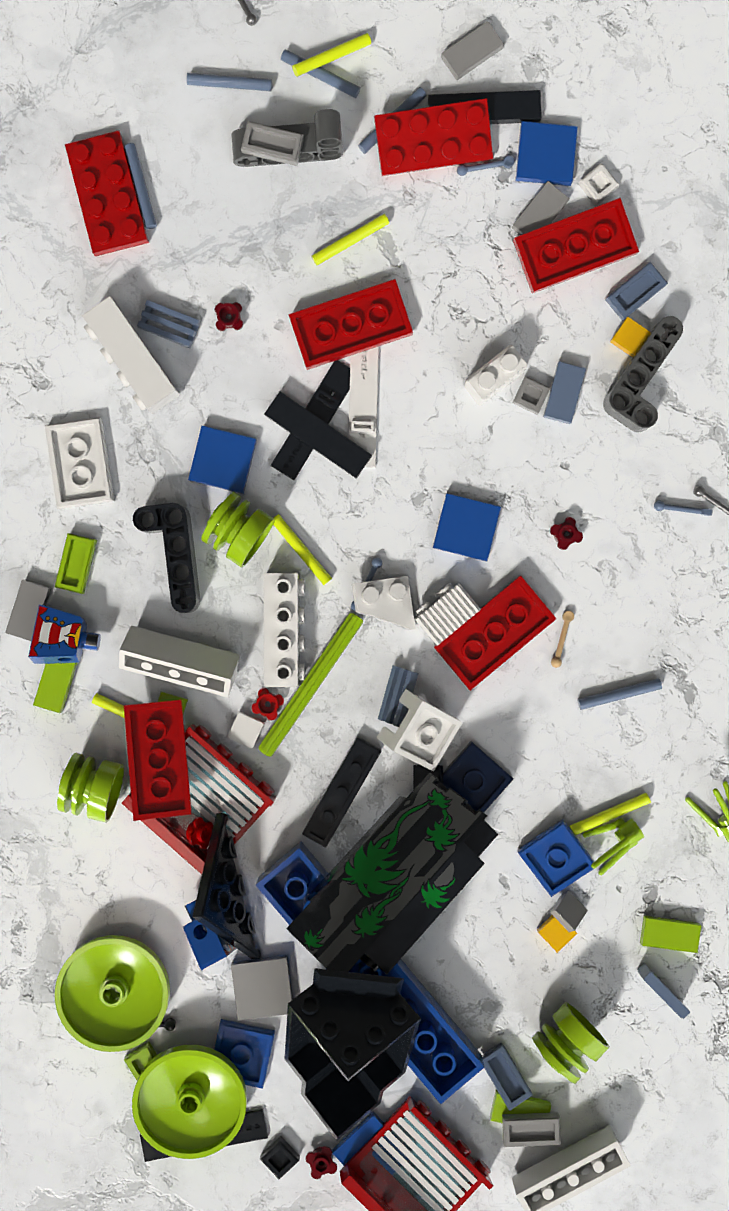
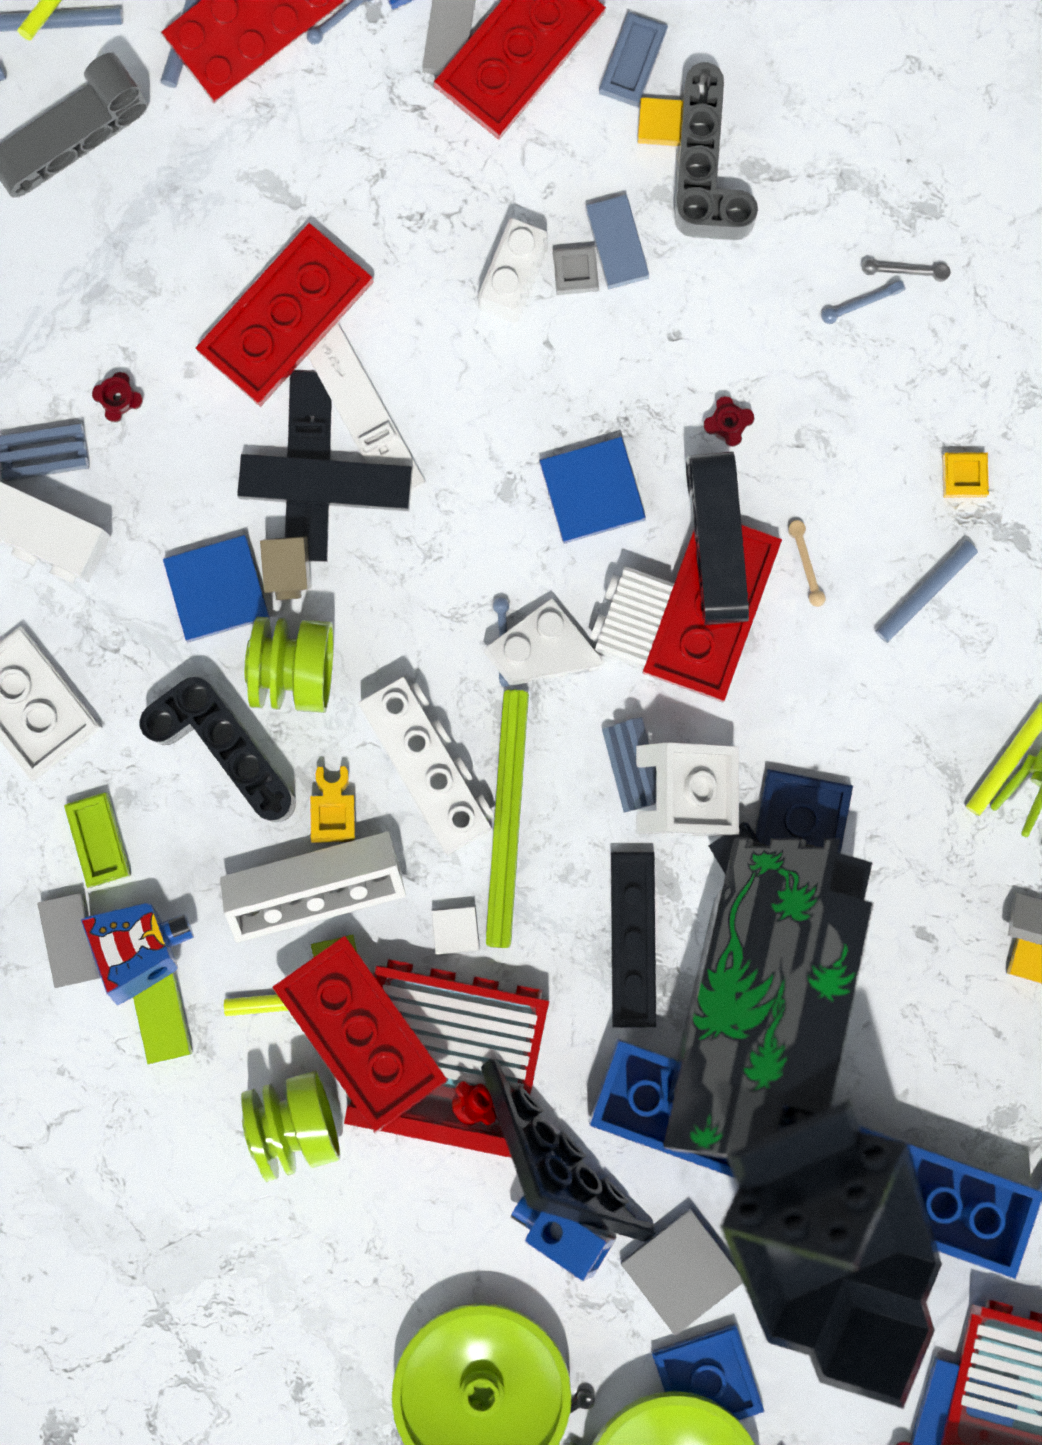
camera: 20 degrees left, 5 degrees down
(215, 625) = (332, 813): none -> yellow plate
(260, 707) = (457, 889): red plate -> none
(268, 470) = (285, 566): none -> dark tan brick
(272, 143) = (49, 141): light grey tile -> none
(301, 550) = (391, 647): neon yellow bar -> none
(350, 239) = (220, 207): neon yellow bar -> none
(521, 598) = (718, 537): none -> black beam
(556, 857) = (974, 858): blue tile -> none
(681, 641) = (965, 475): none -> yellow tile

